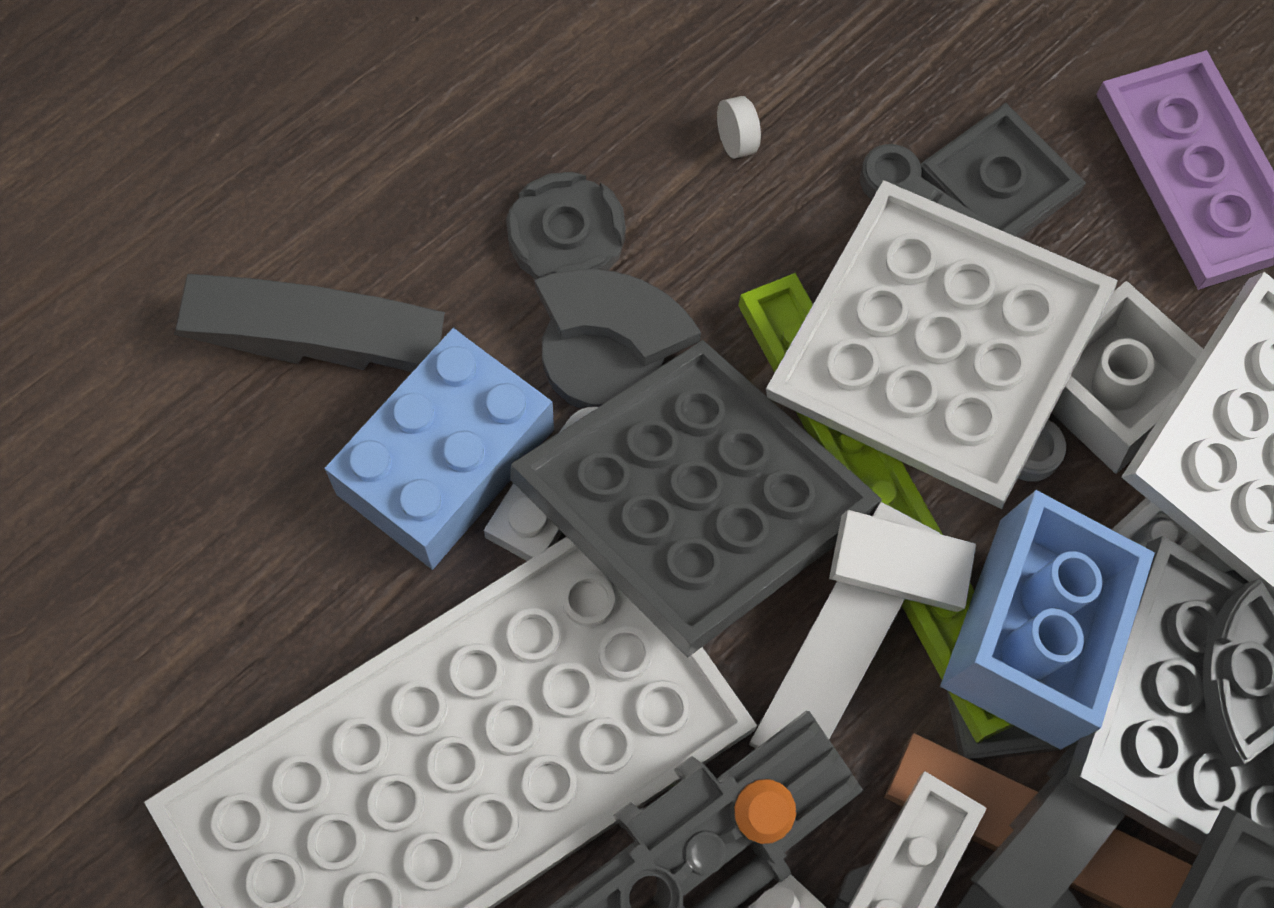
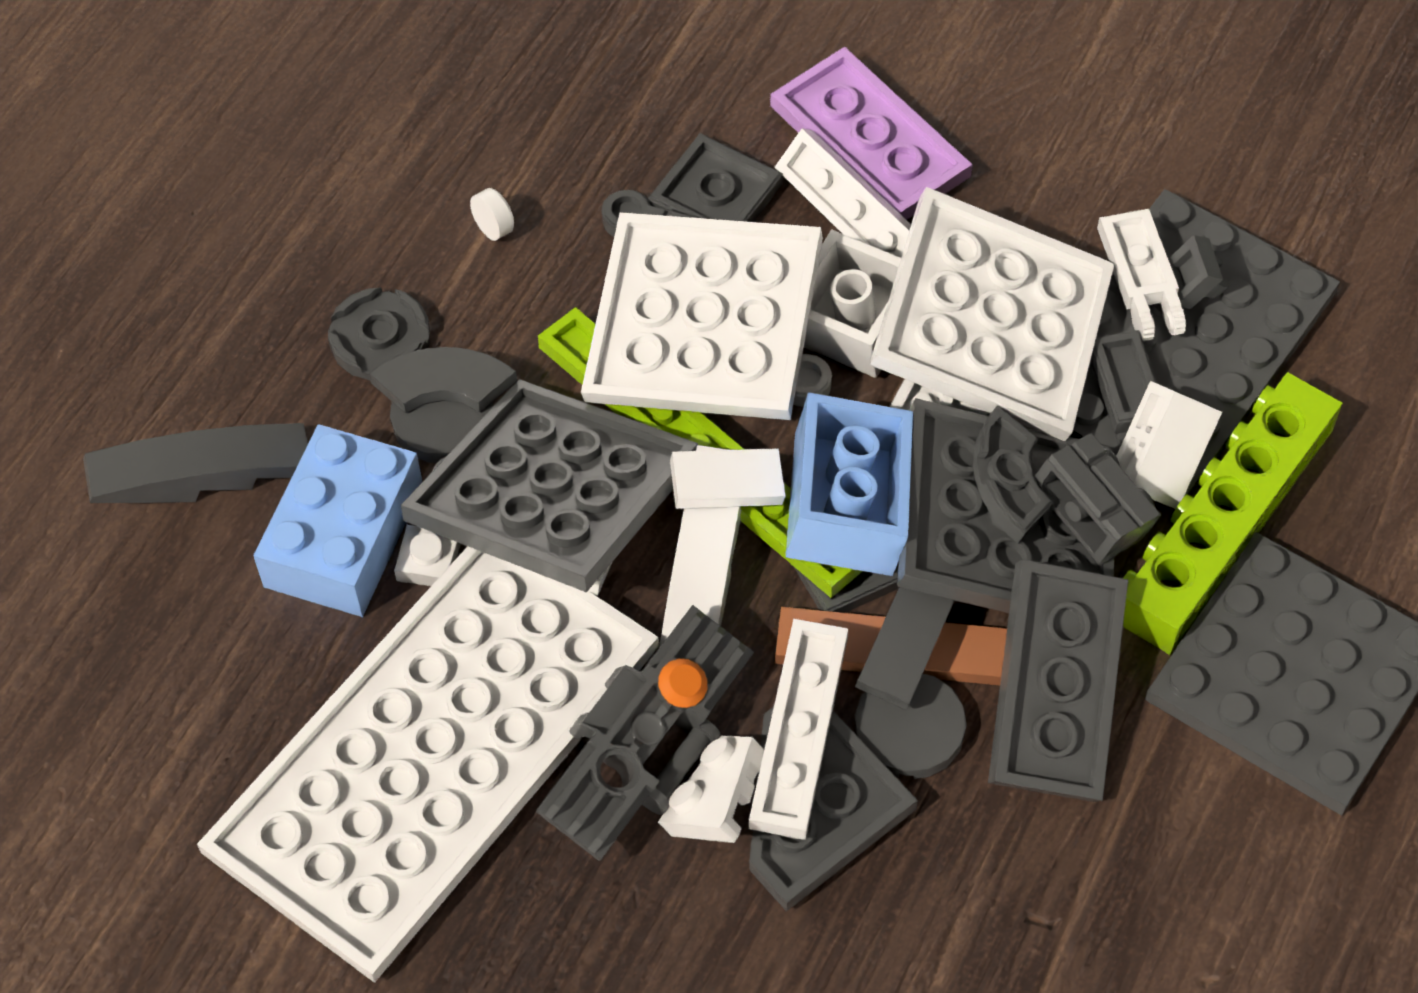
camera: 15 degrees left, 10 degrees down
(1153, 240) = (842, 194): none -> white plate

